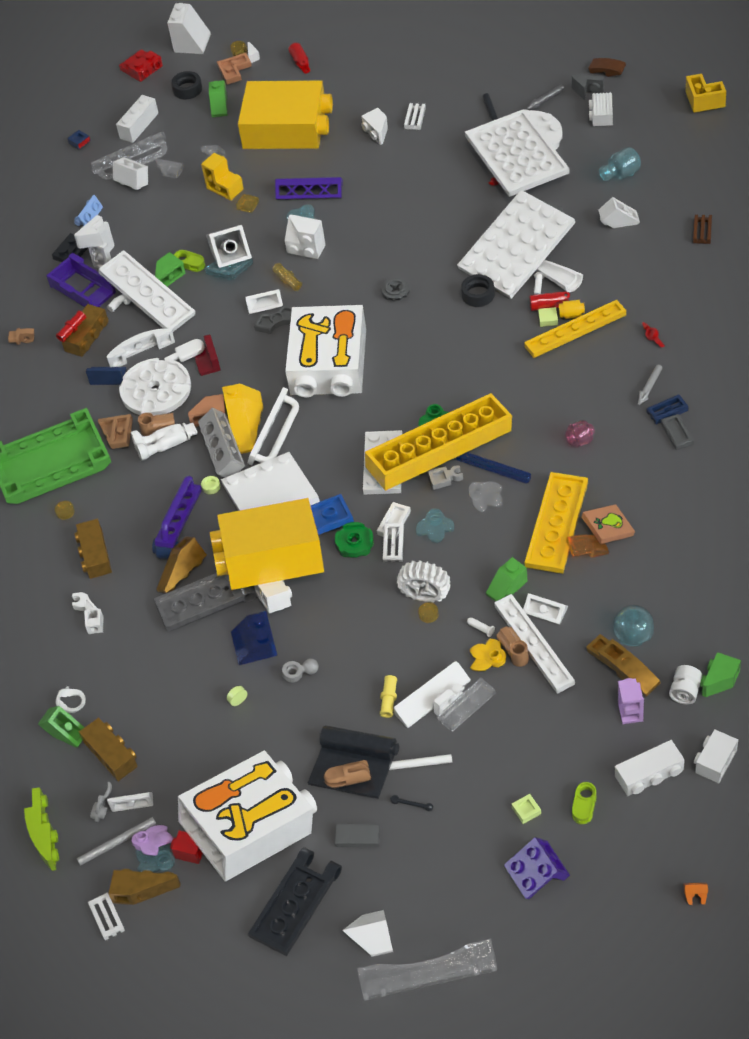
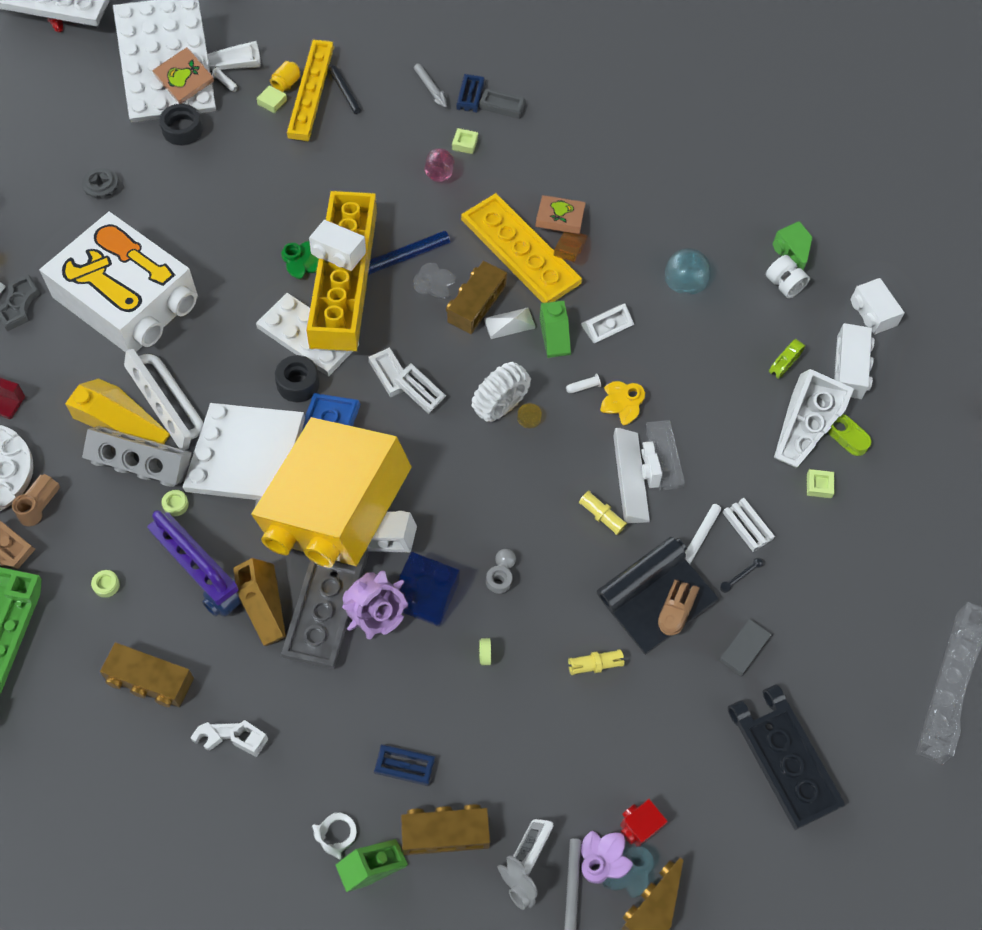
camera: 65 degrees left, 10 degrees up
(64, 510) = (54, 673): clear yellow tile -> none
(134, 492) = (105, 583): none -> yellowish green tile
(140, 718) = (403, 765): none -> dark blue tile
(162, 439) = (66, 504): white piece -> none
(208, 402) = (72, 438): nougat slope -> none
(216, 617) = (374, 604): none -> lavender brick
(246, 814) = (665, 736): white brick -> none
(277, 755) = (596, 662): none -> light yellow pin
(343, 469) = (294, 366): none -> black tyre
(358, 548) = (382, 407): green plate -> none
(371, 933) = (870, 703): white slope -> none
(435, 525) = (433, 345): clear light blue plate -> none
(441, 422) = (337, 245): none -> white brick
(442, 477) = (380, 298): light grey plate -> none
(459, 769) = (744, 506): none -> white tile
(490, 555) = (509, 323): none -> white slope
(492, 524) = (476, 297): none -> pearl gold brick
(508, 262) = (183, 75): none -> nougat tile
(514, 646) = (633, 372): medium nougat piece -> none
(535, 867) = (896, 519): bracket -> none
(537, 646) = (643, 355): white plate -> none
(547, 300) = (254, 85): red piece -> none
(578, 765) = (811, 412): none -> white wedge
(596, 345) = (344, 89): none -> black bar
(612, 727) = (787, 358): none -> lime piece
(620, 434) = (465, 141): none -> yellowish green tile
(623, 663) = (726, 302): pearl gold slope -> none
(630, 701) = (773, 334): lavender window -> none
(652, 334) = (377, 46): red piece -> none

